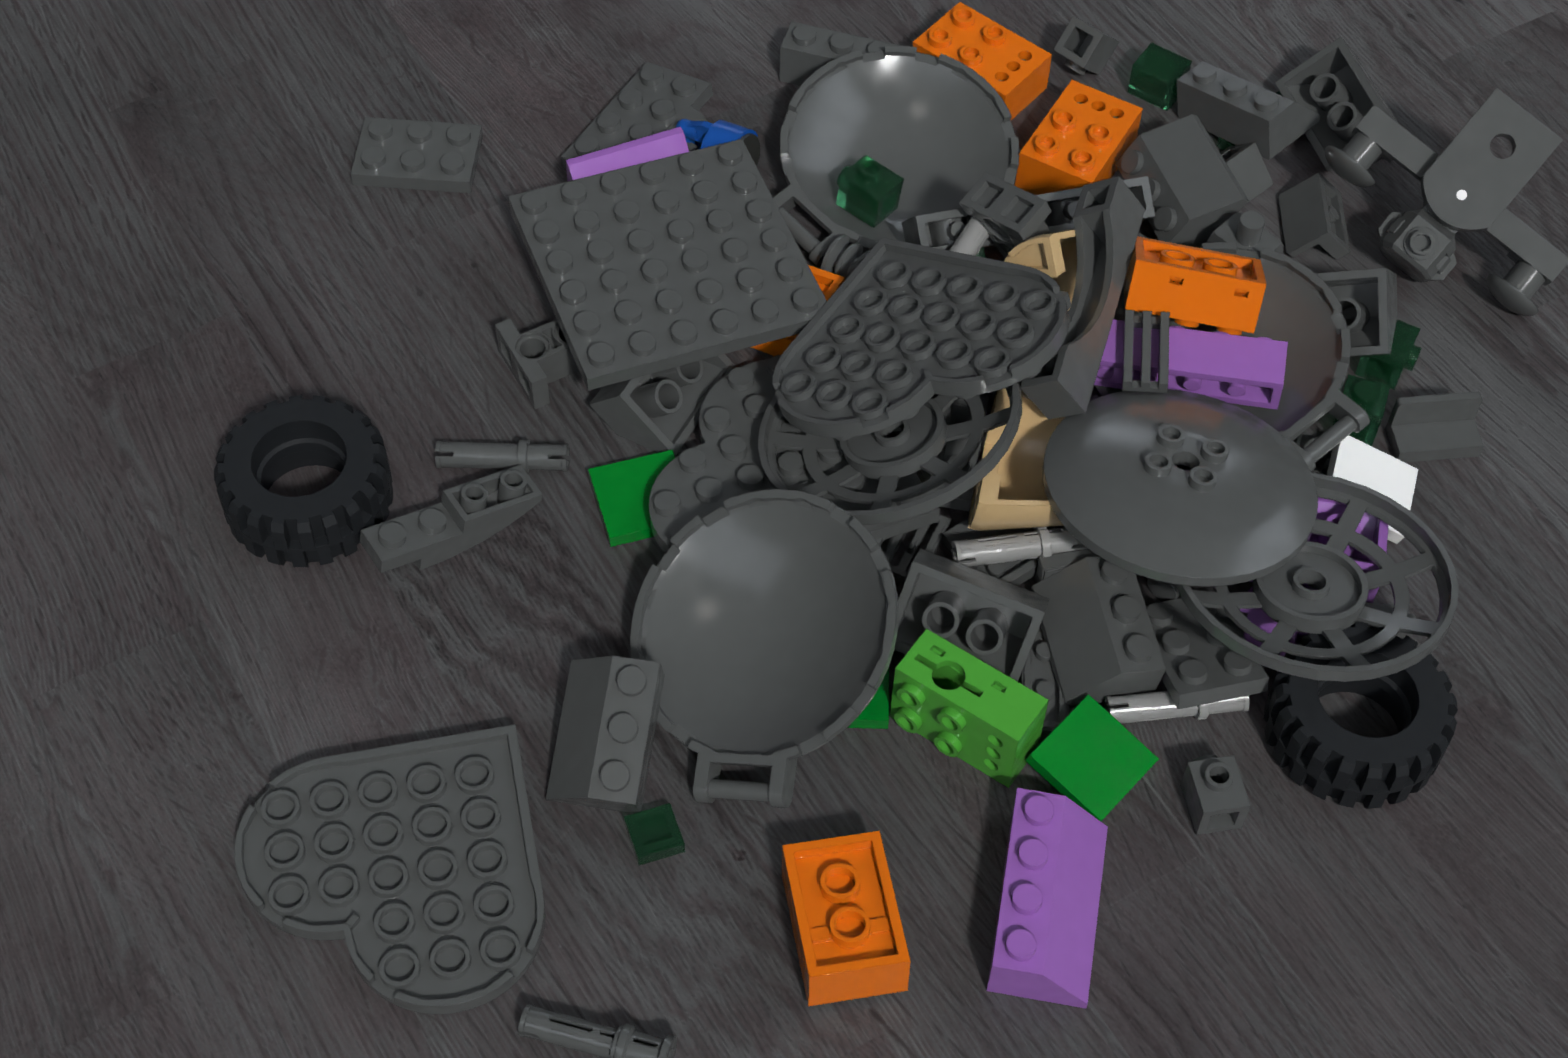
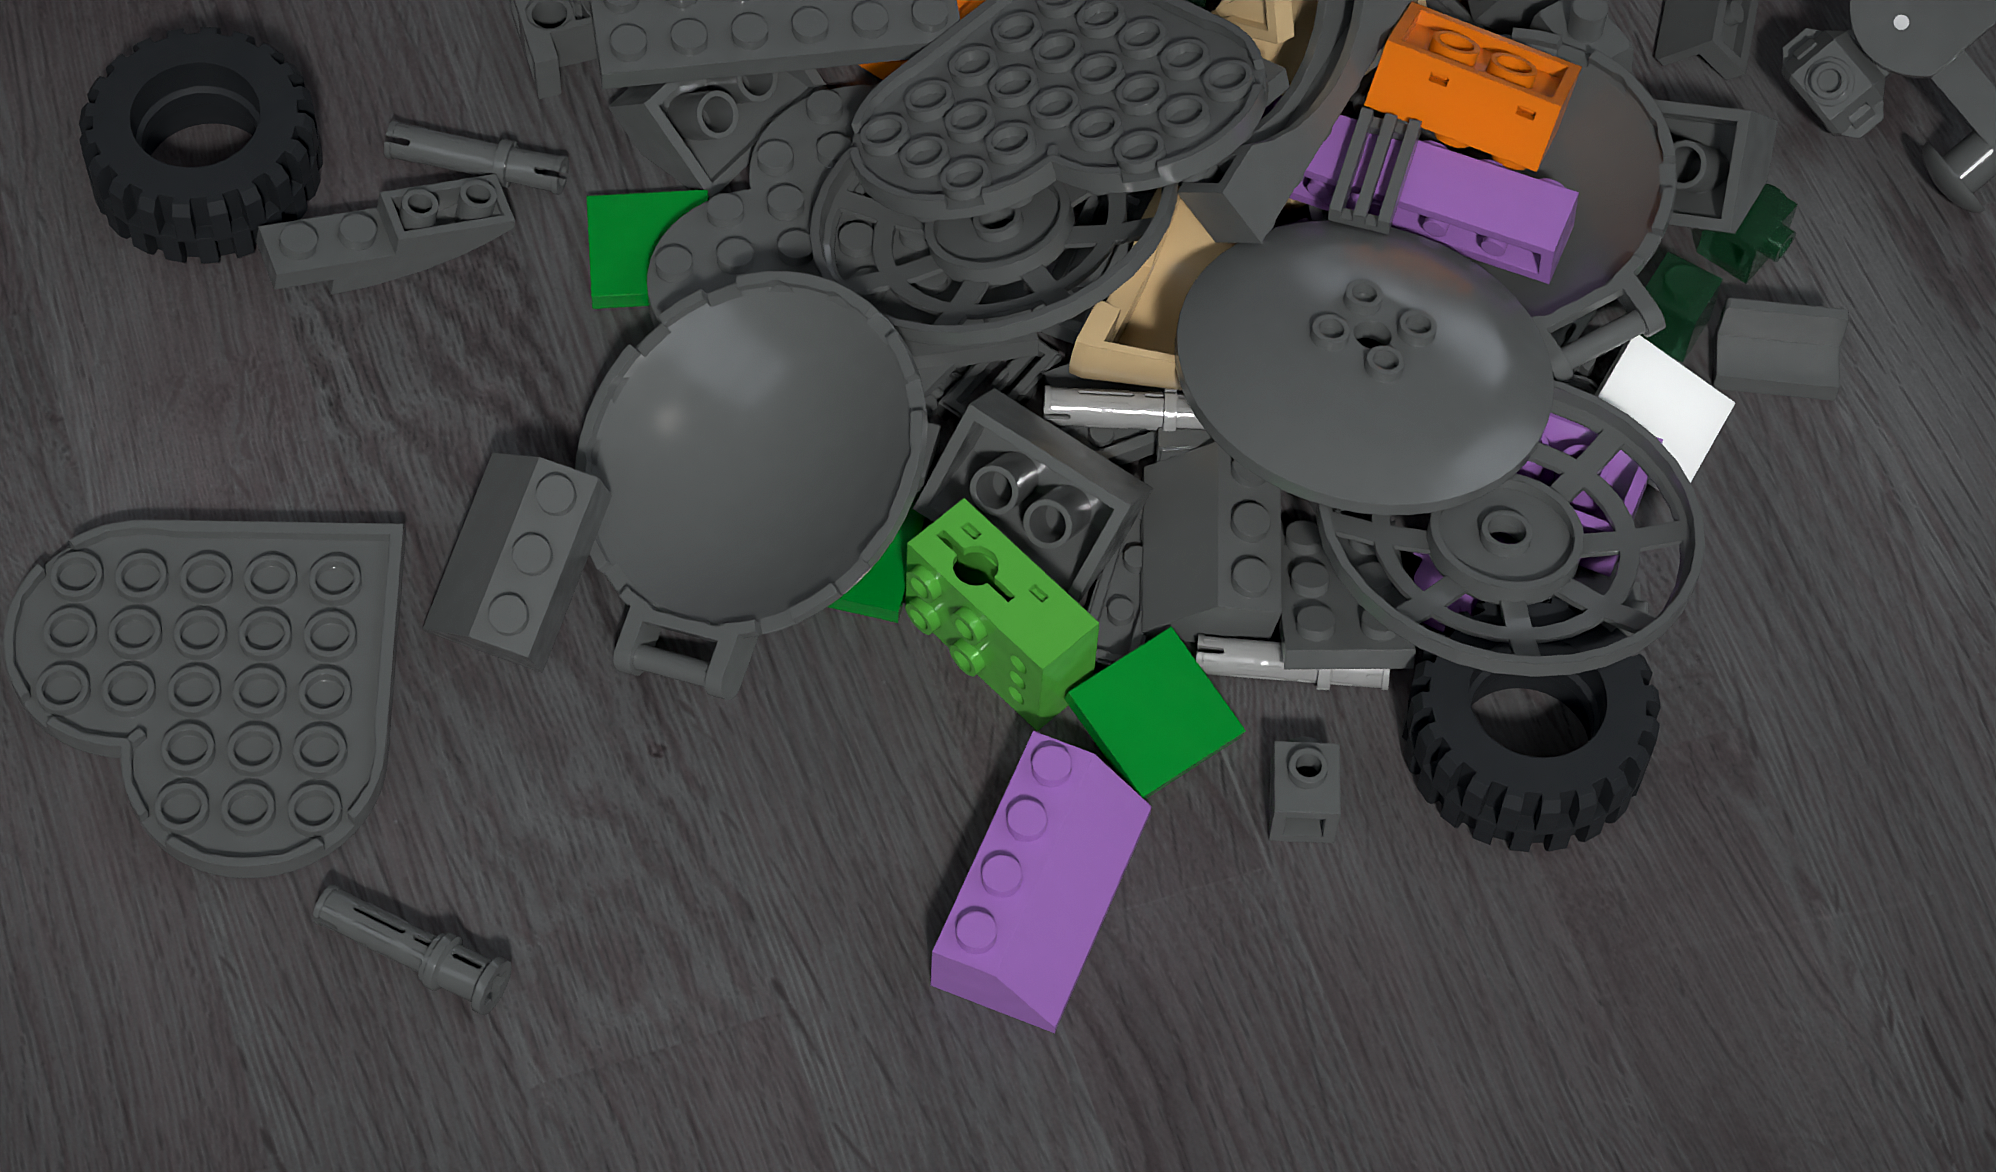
camera: 10 degrees right, 5 degrees up
(654, 834) = (551, 701): clear green tile -> none
(845, 918) = (763, 855): orange piece -> none

